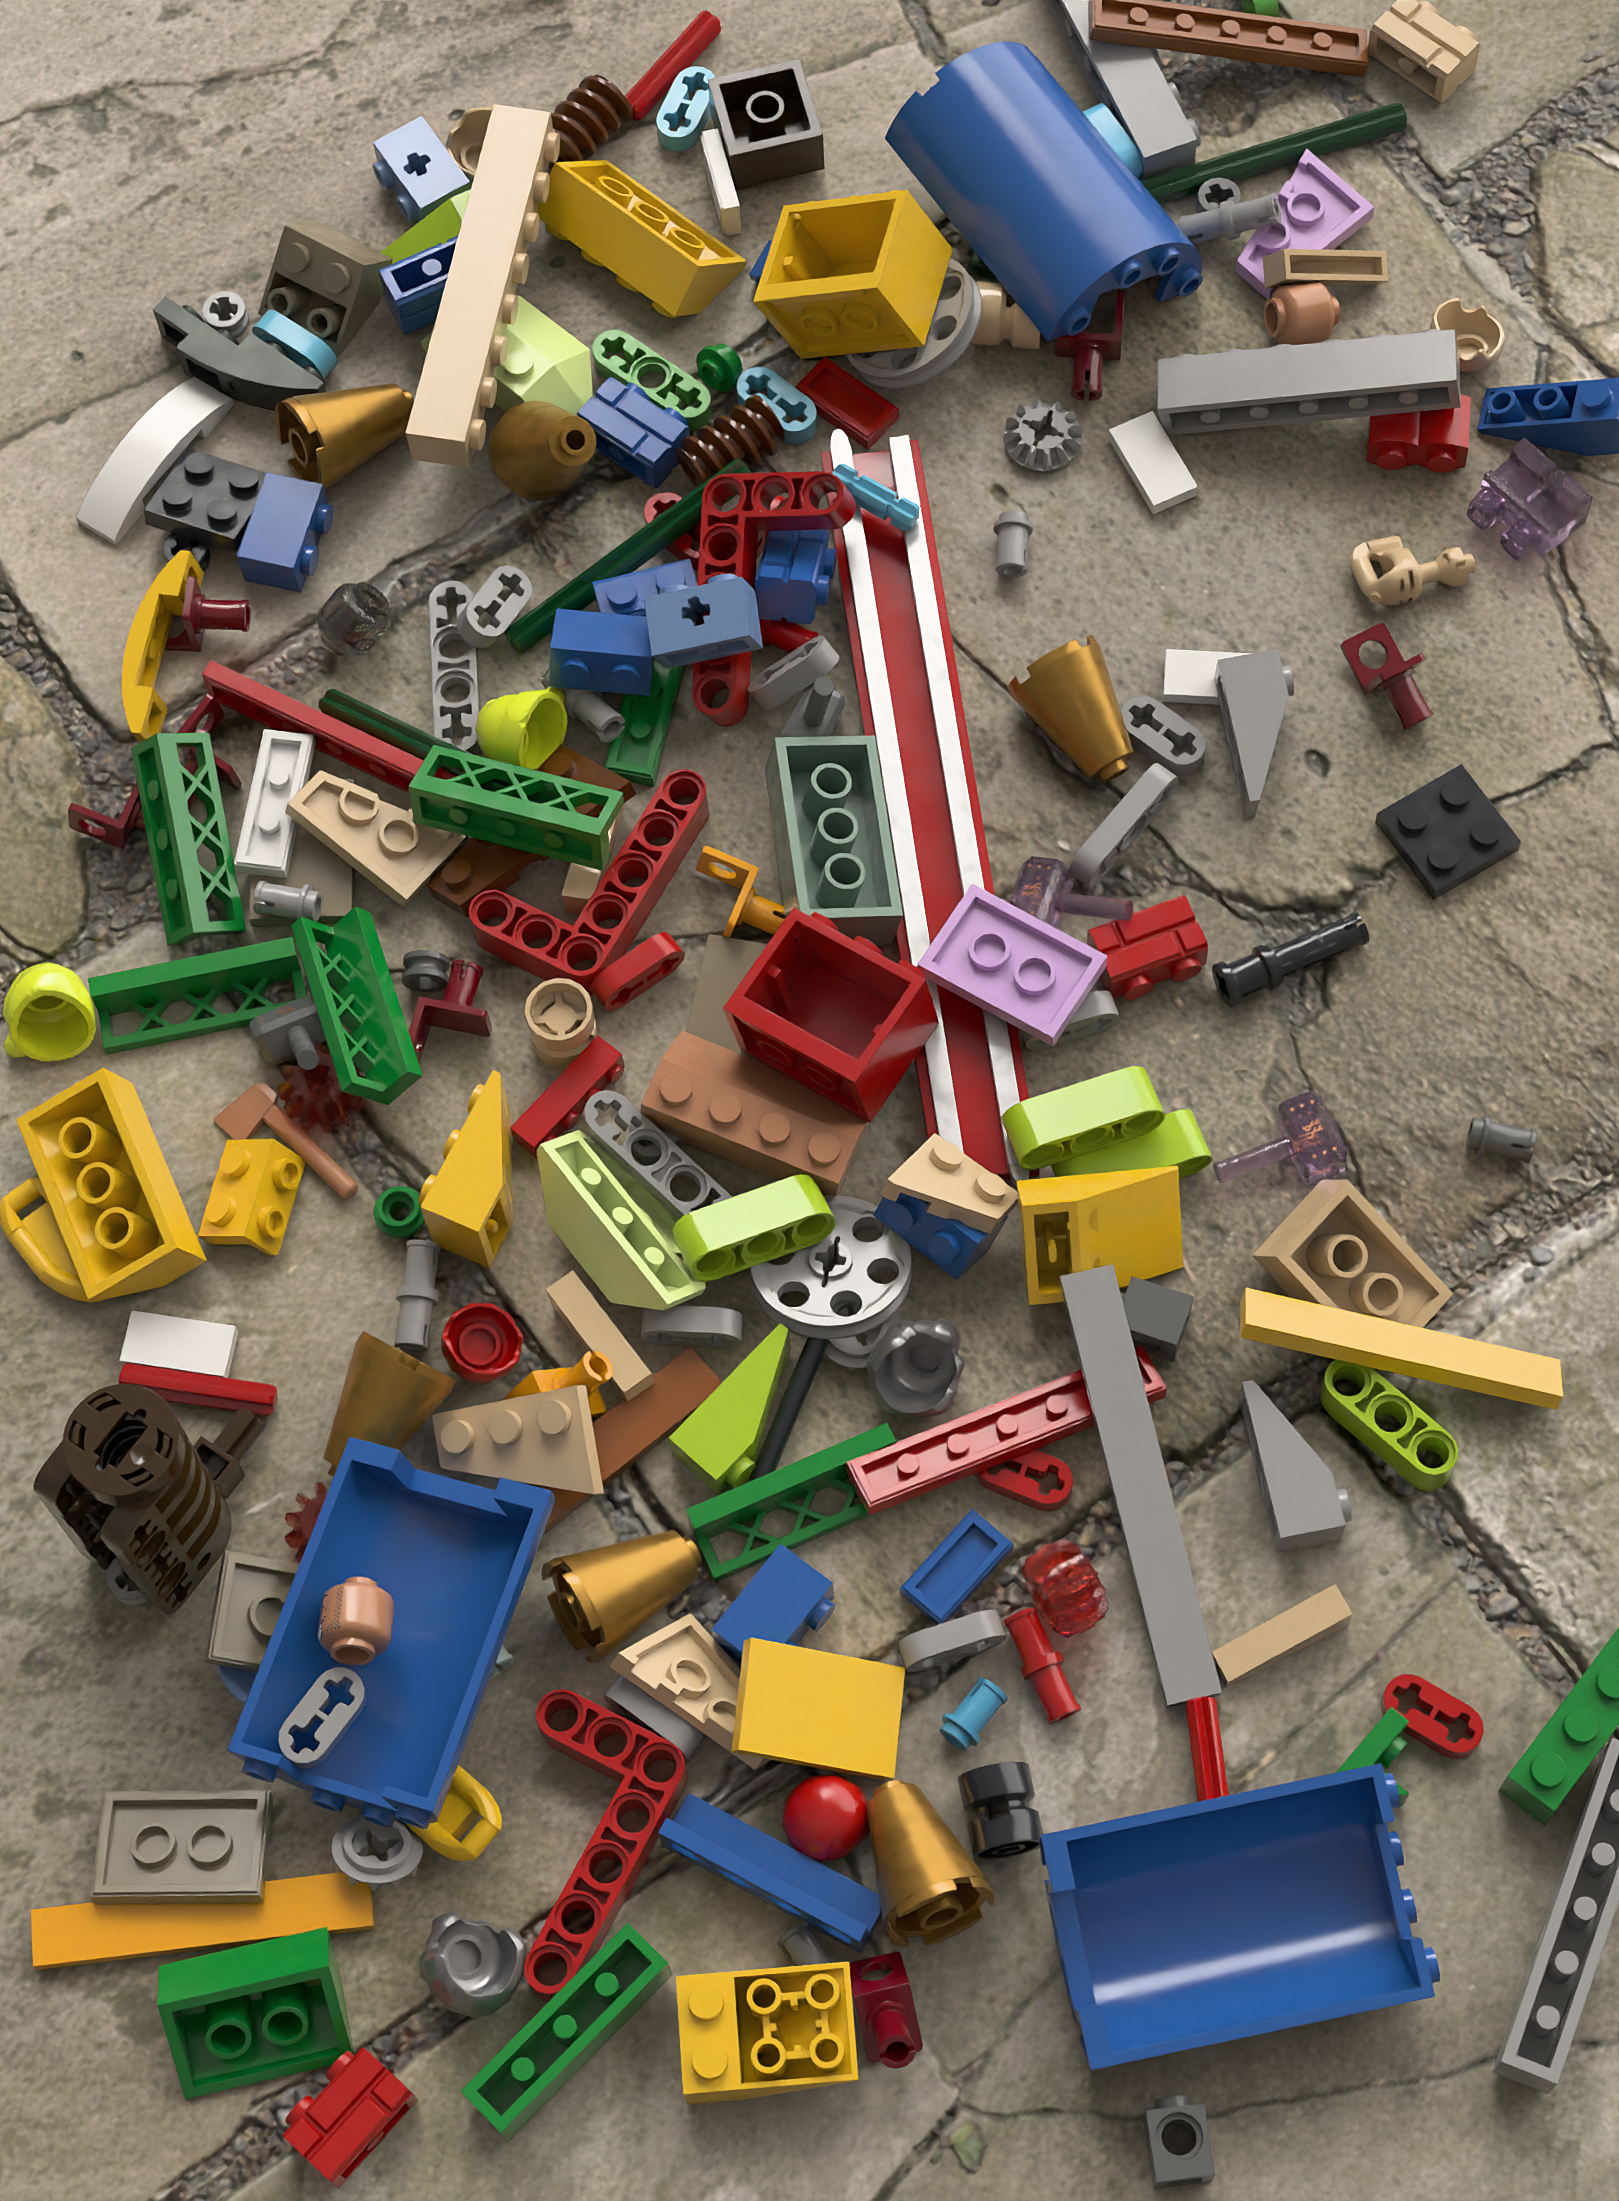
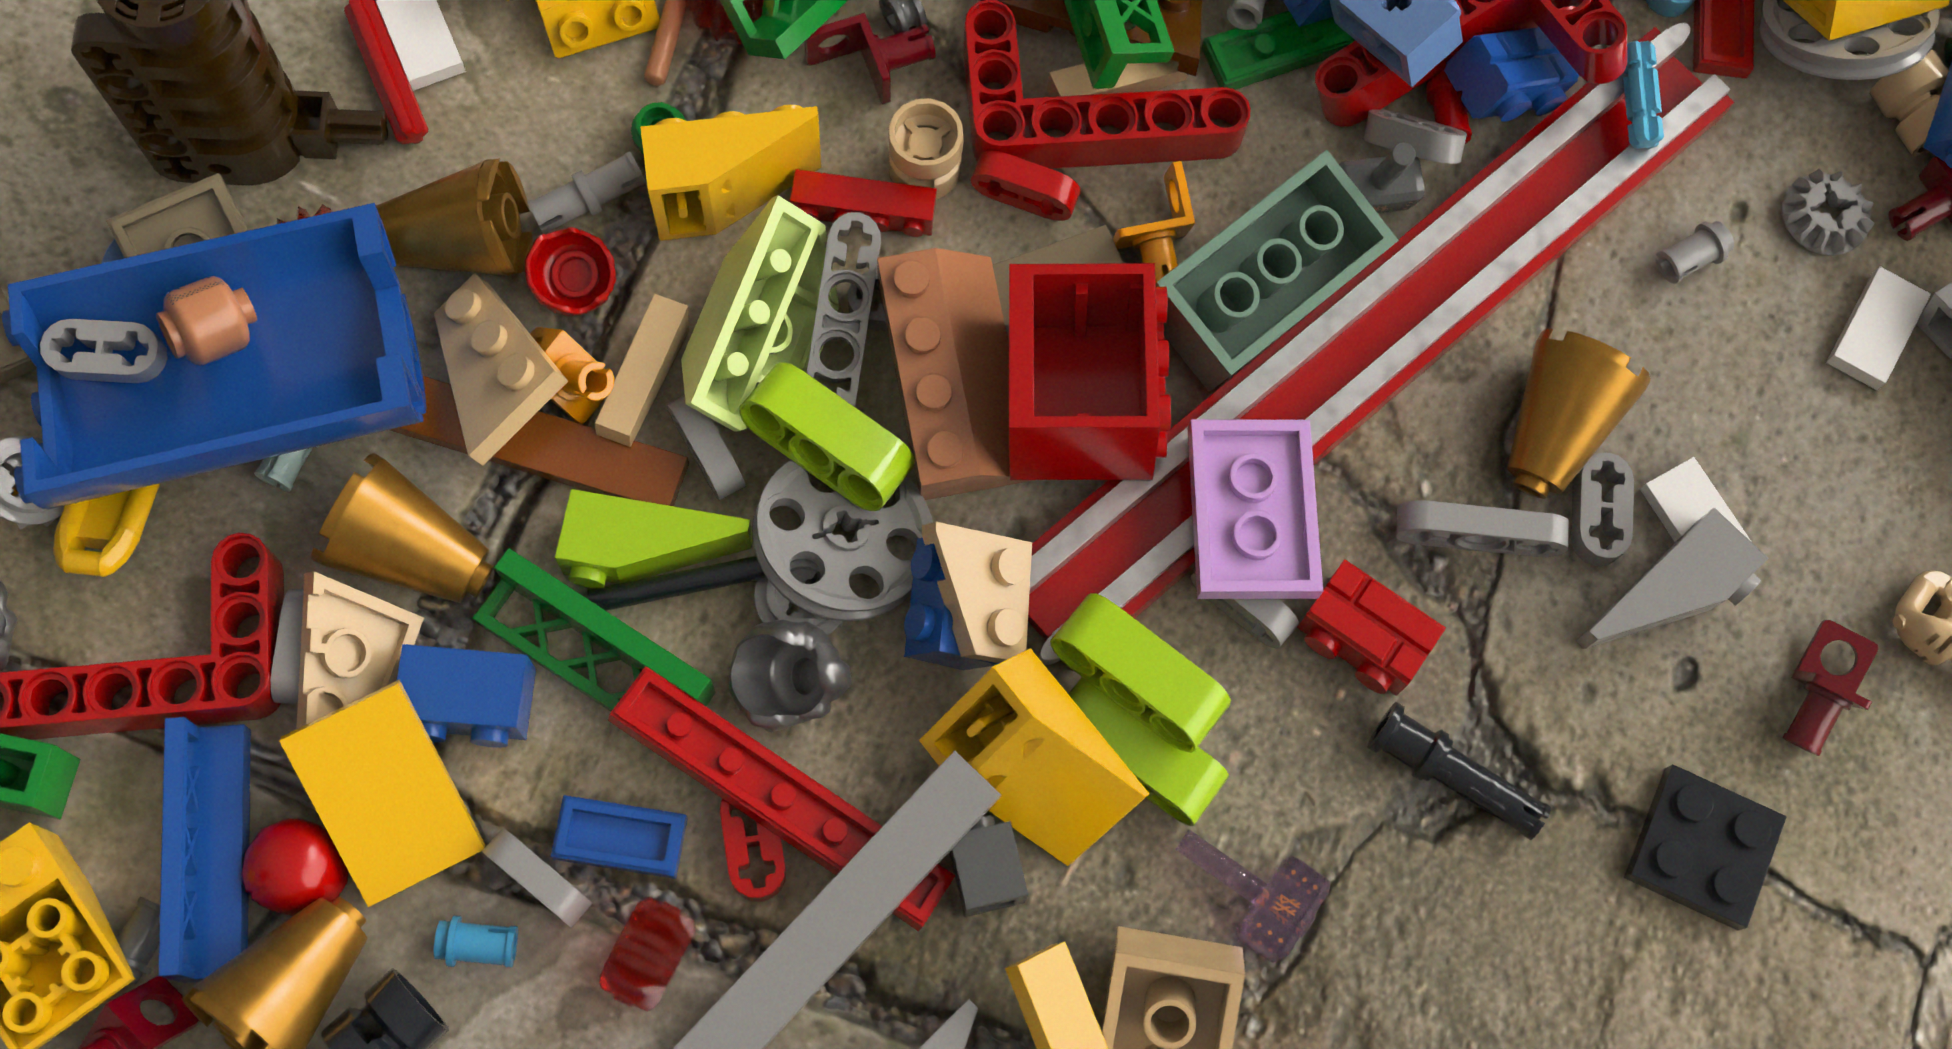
camera: 45 degrees right, 5 degrees up
(1042, 1665) = (564, 980): red pin -> none
(1045, 893) = (1354, 499): piece -> none

